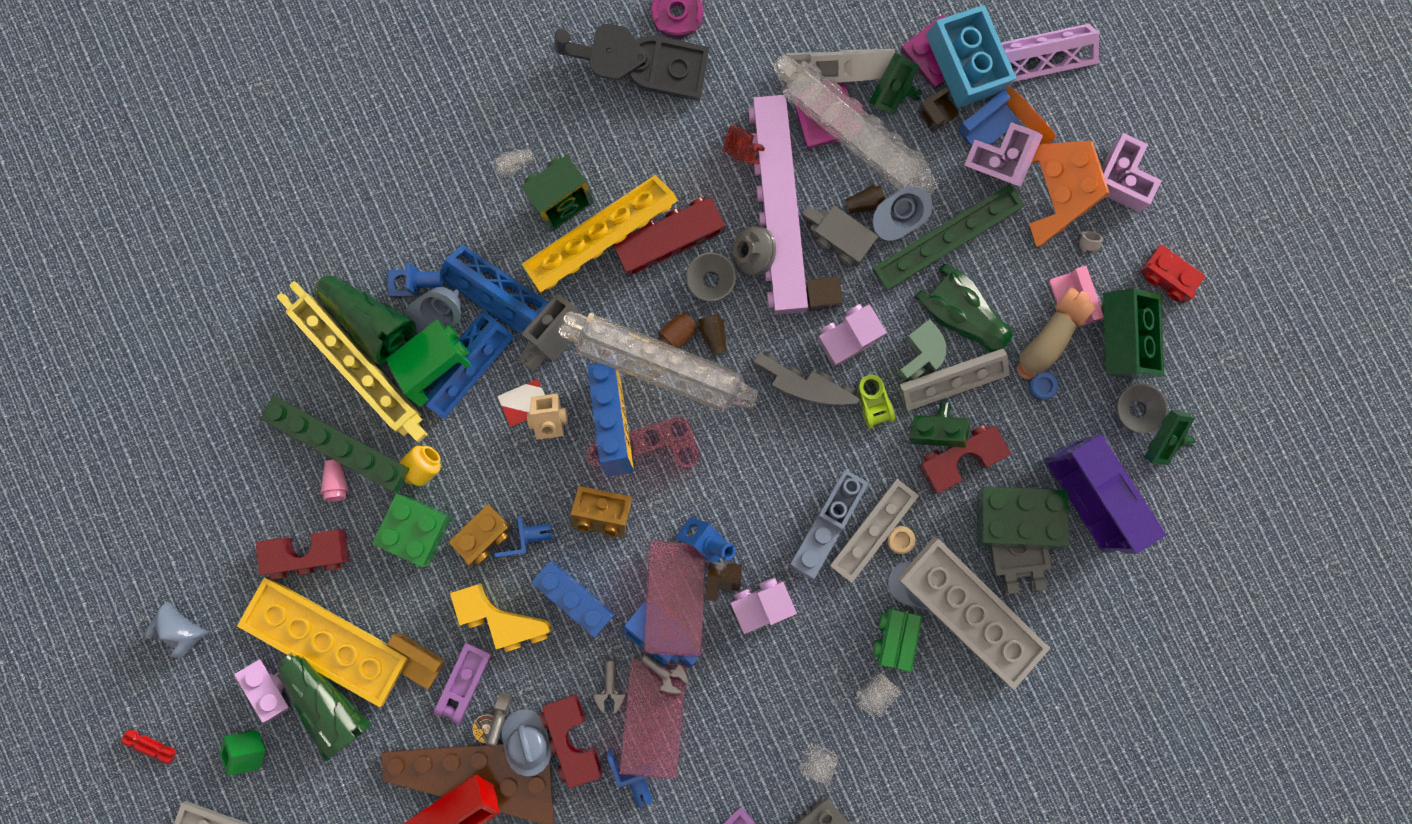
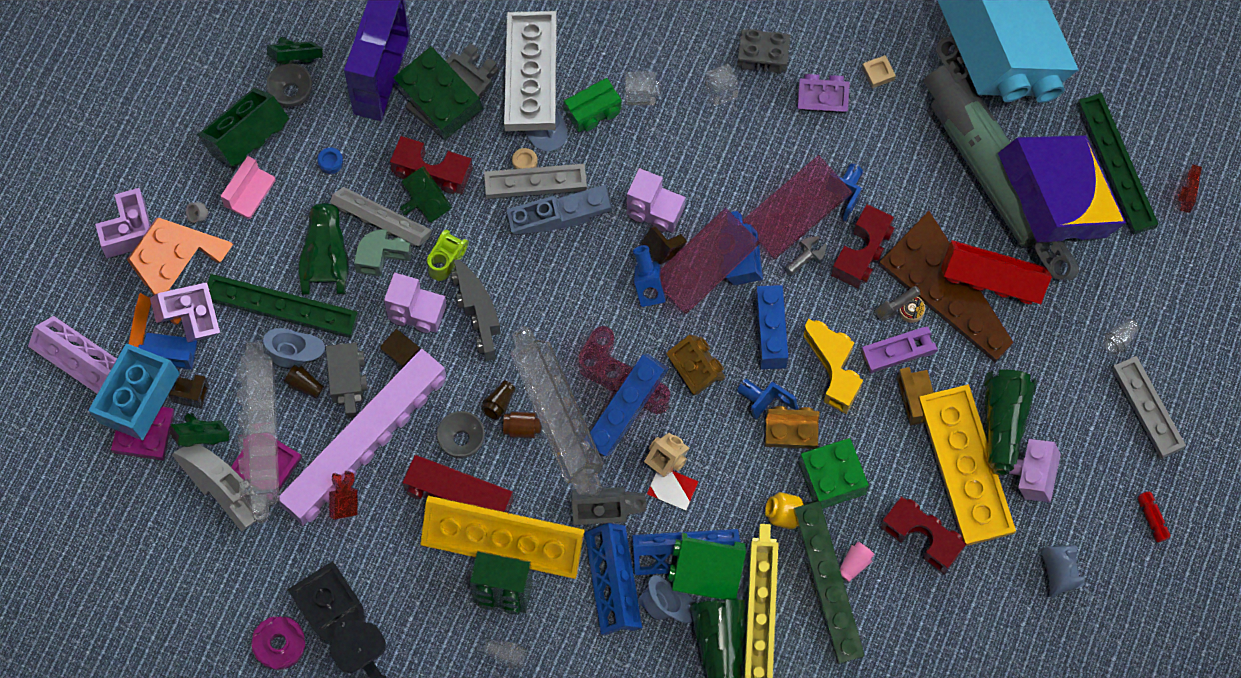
camera: 140 degrees left, 15 degrees down
(242, 752) = (1091, 449): green panel -> none
(414, 281) = (661, 639): blue bracket -> none
(526, 743) = (894, 272): sand blue piece -> none
(665, 674) = (760, 224): flat silver bar -> none
(761, 251) = (404, 420): dark grey piece -> none
(1055, 336) = (300, 172): dark tan piece -> none
(1172, 274) = (172, 144): red bracket -> none

